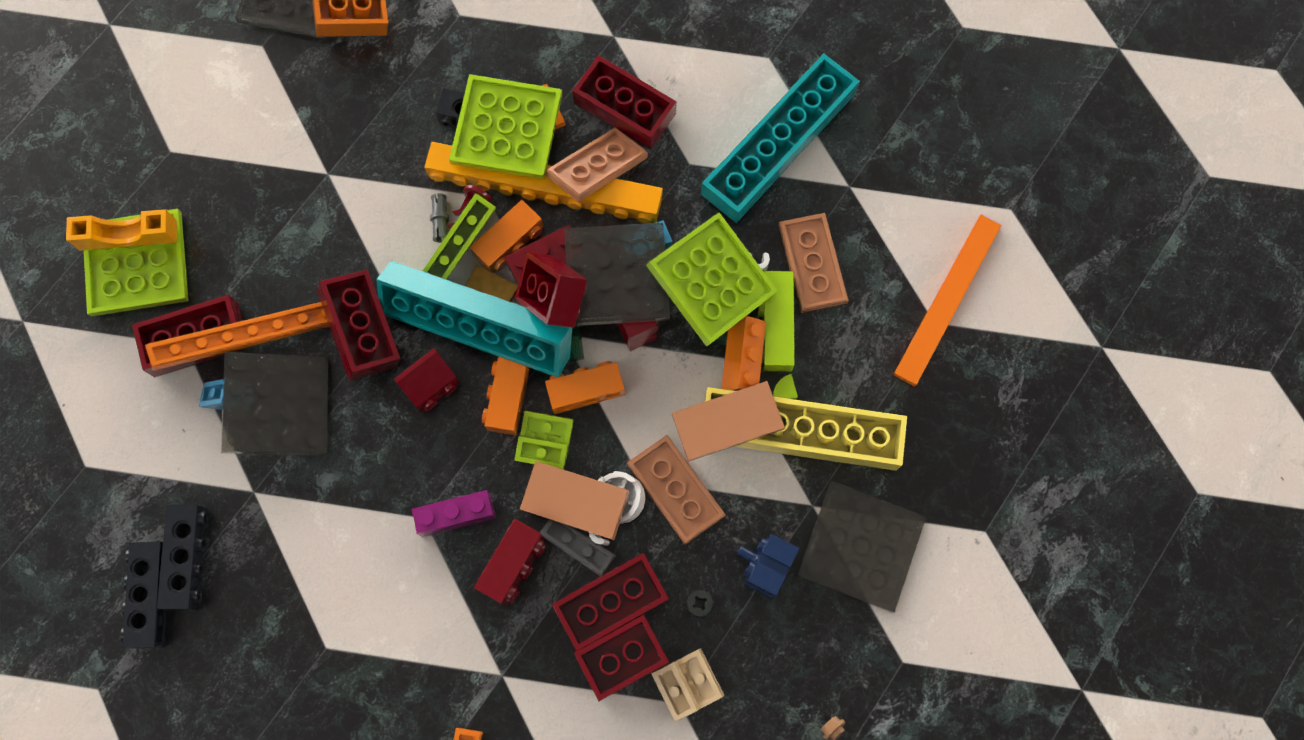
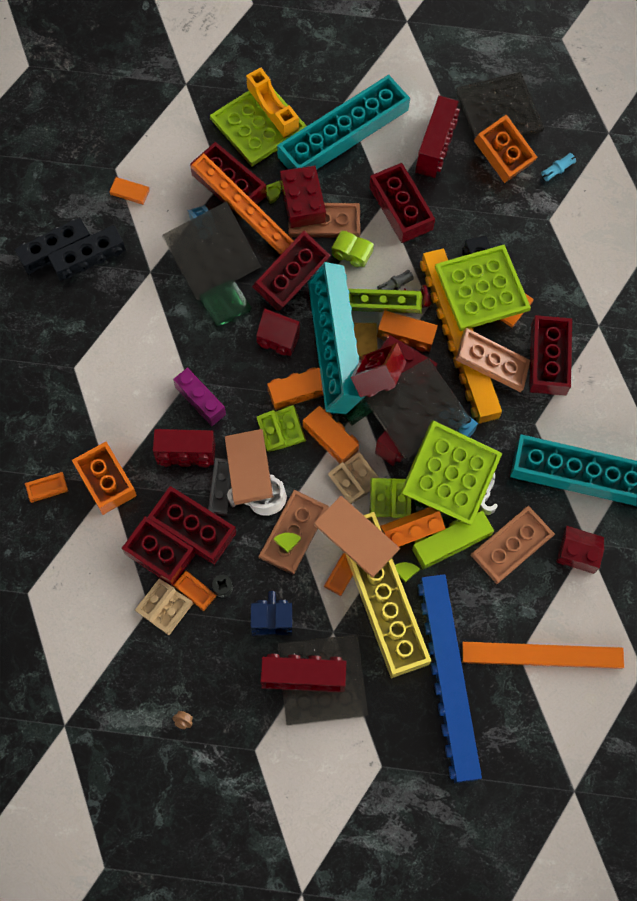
camera: 60 degrees right, 5 degrees down
(127, 463) = (129, 190): none -> orange tile
(206, 169) = (345, 125): none -> teal brick
(238, 292) = (273, 191): none -> lime tile
(269, 261) = (303, 196): none -> dark red brick
(287, 71) = (437, 137): none -> dark red brick
(310, 254) = (338, 217): none -> nougat tile
(344, 156) = (401, 202): none -> dark red brick
(349, 422) = (225, 302): none -> clear green slope
(369, 242) = (352, 249): none -> lime brick
(494, 679) = (104, 478): none -> orange brick
(649, 388) = (353, 477): none -> tan slope
(686, 502) = (287, 541): none -> lime tile
(686, 638) = (194, 590): none -> orange tile
(694, 362) = (387, 499): none -> lime slope
(753, 465) = (339, 577): none -> orange tile
(856, 195) = (581, 550): none -> dark red slope
(857, 562) = (303, 674): none -> dark red brick
(929, 408) = (450, 679): none -> blue brick

